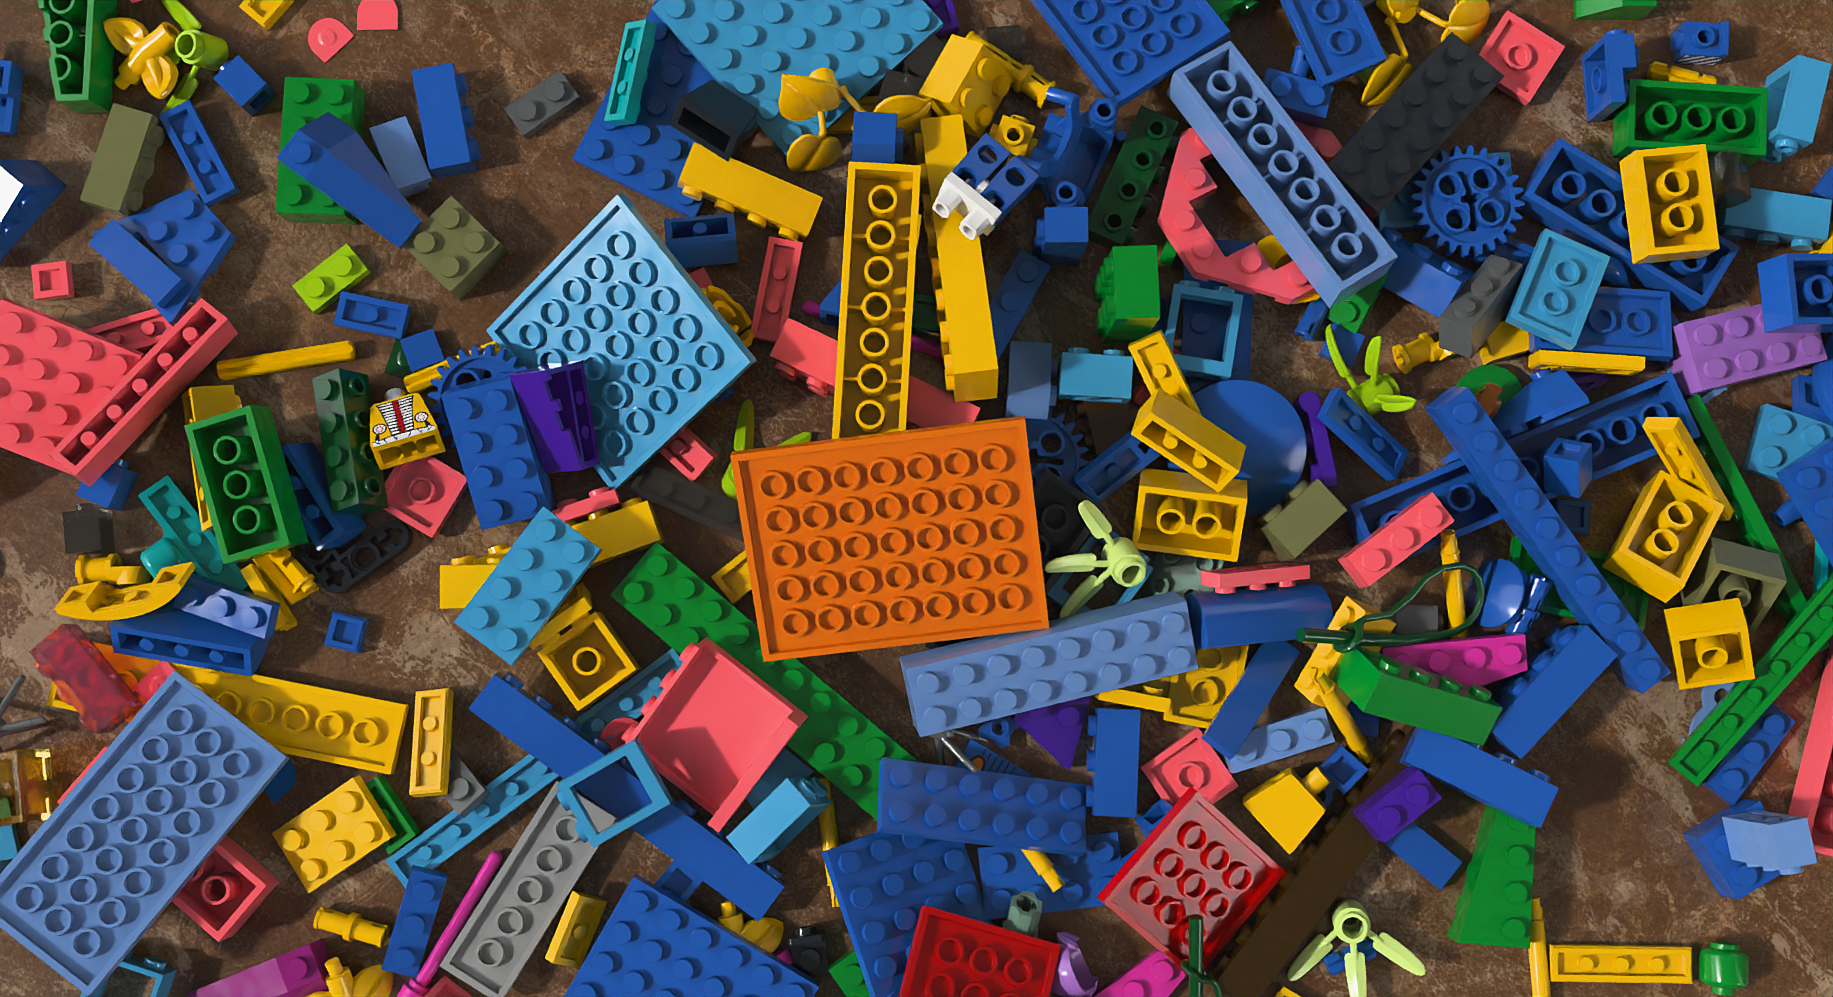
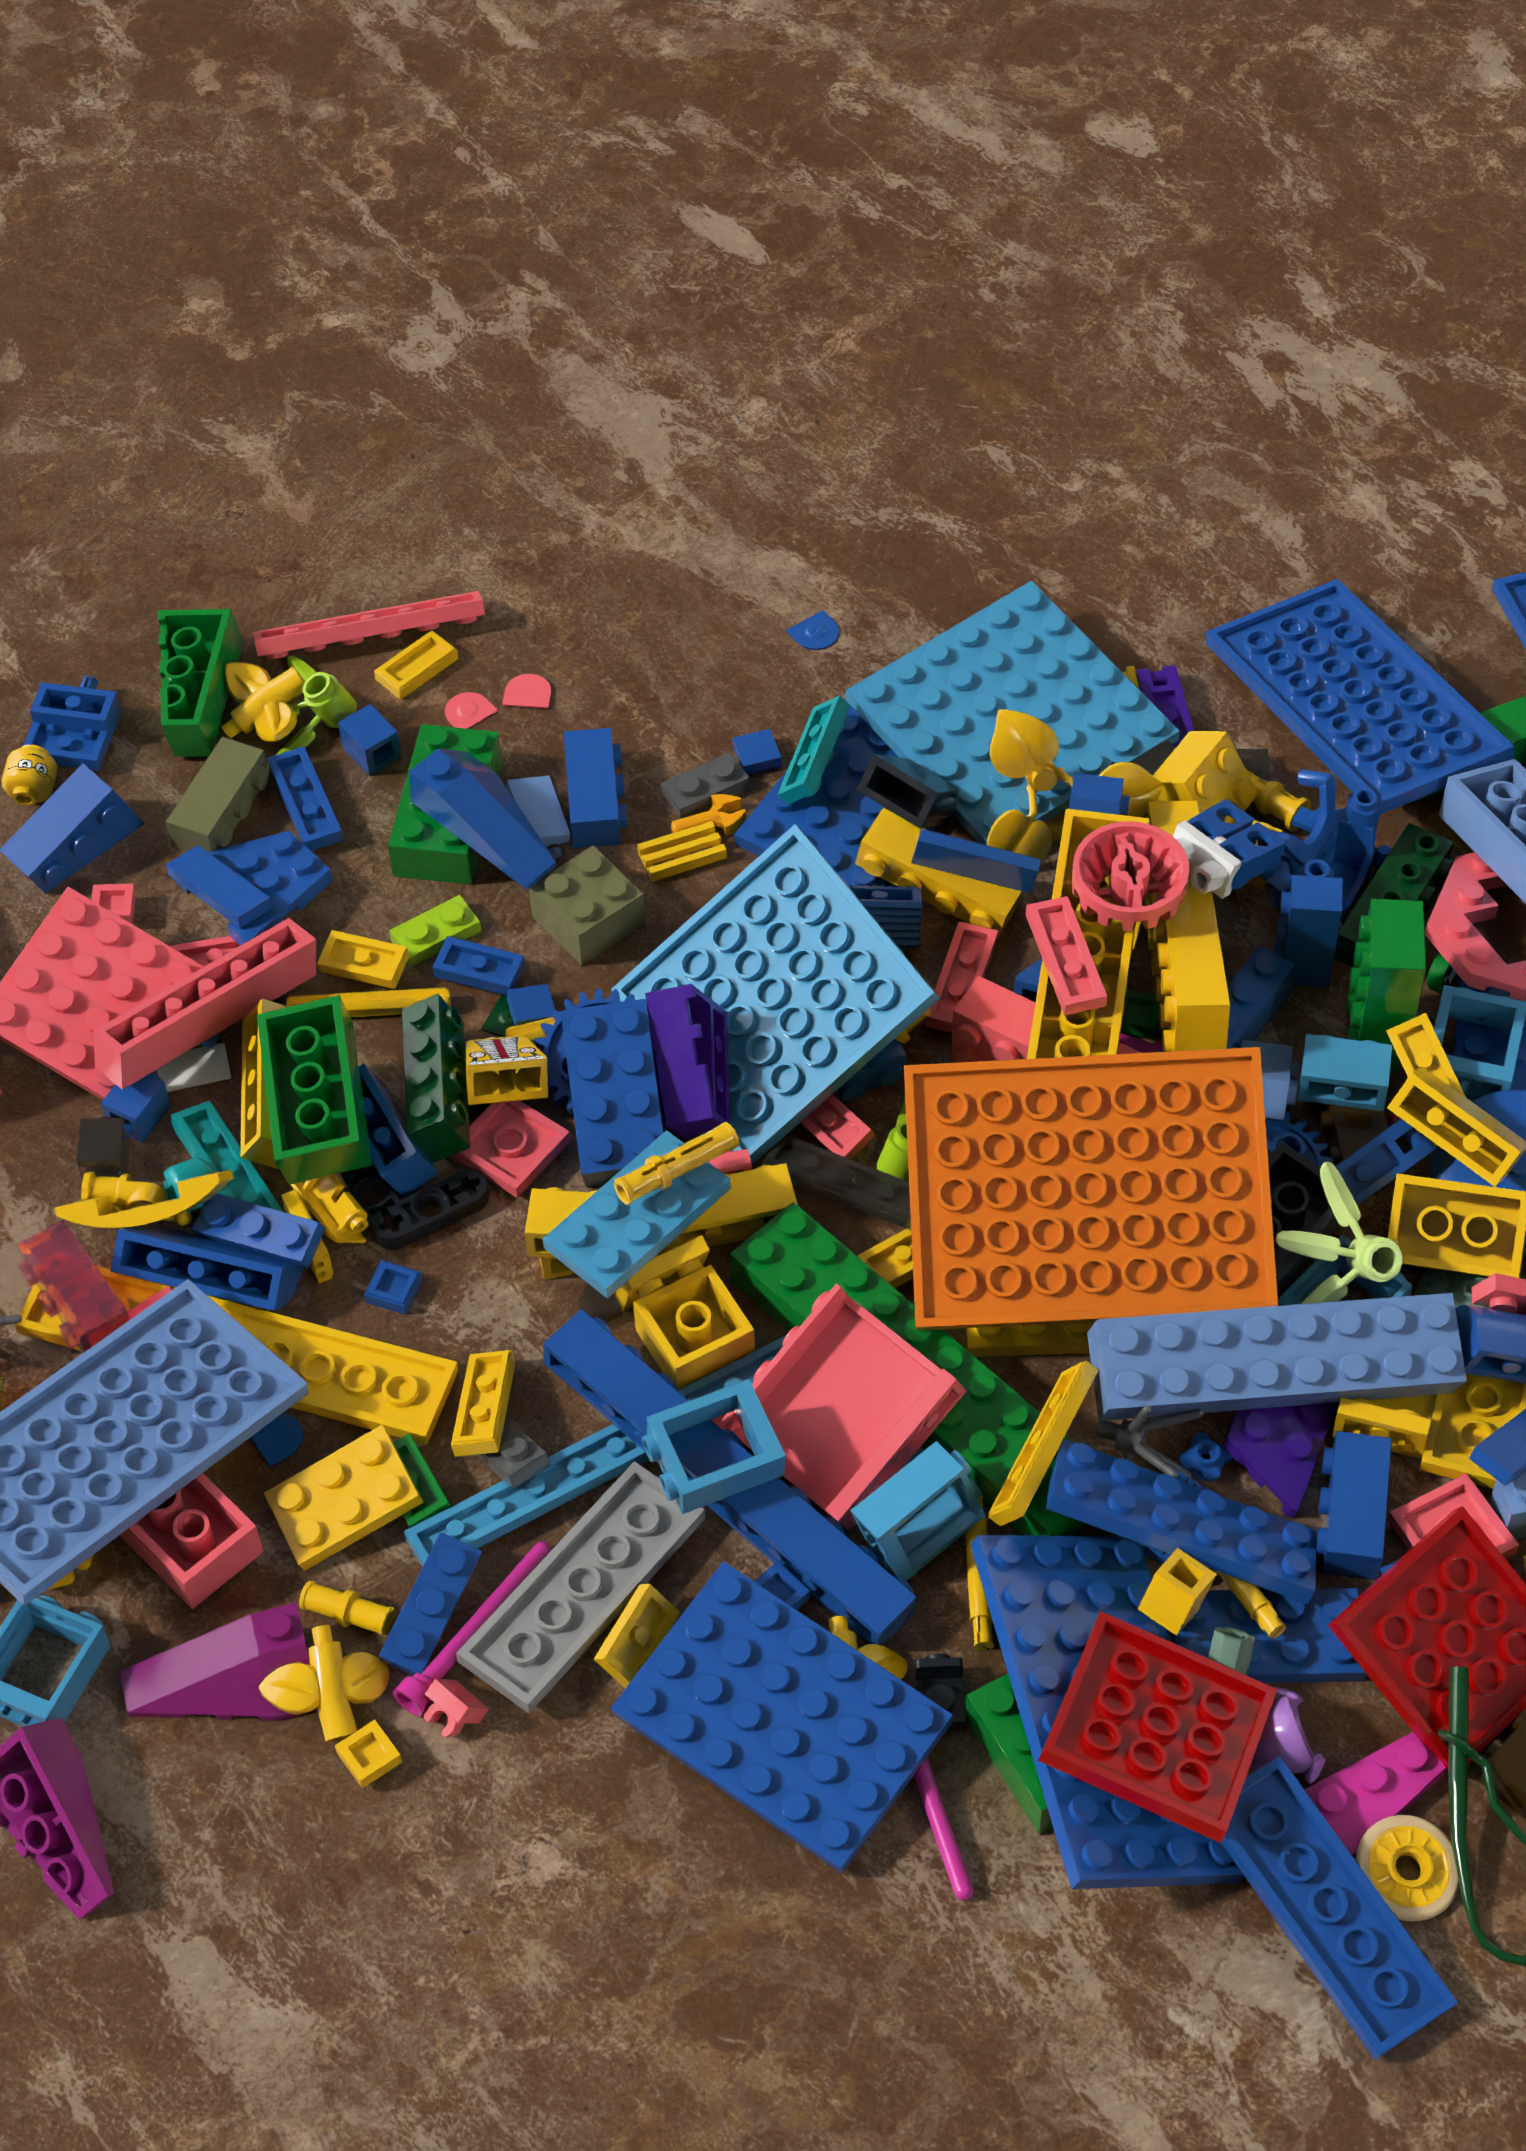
camera: 10 degrees right, 30 degrees down
(158, 436) = (196, 1068): none -> white sticker
(274, 319) = (363, 959): none -> yellow plate
(519, 579) = (661, 1170): none -> yellow pin
(523, 166) = (679, 846): none -> yellow tile
(553, 138) = (718, 814): none -> light orange bar
(583, 64) = (757, 751): none -> blue tile
(777, 192) = (976, 861): none -> blue tile
(858, 326) = (1066, 955): none -> coral plate
(871, 762) = (1042, 1443): none -> yellow tile
(901, 210) = (1131, 856): none -> coral gear
(981, 871) = (1177, 1591): none -> yellow brick

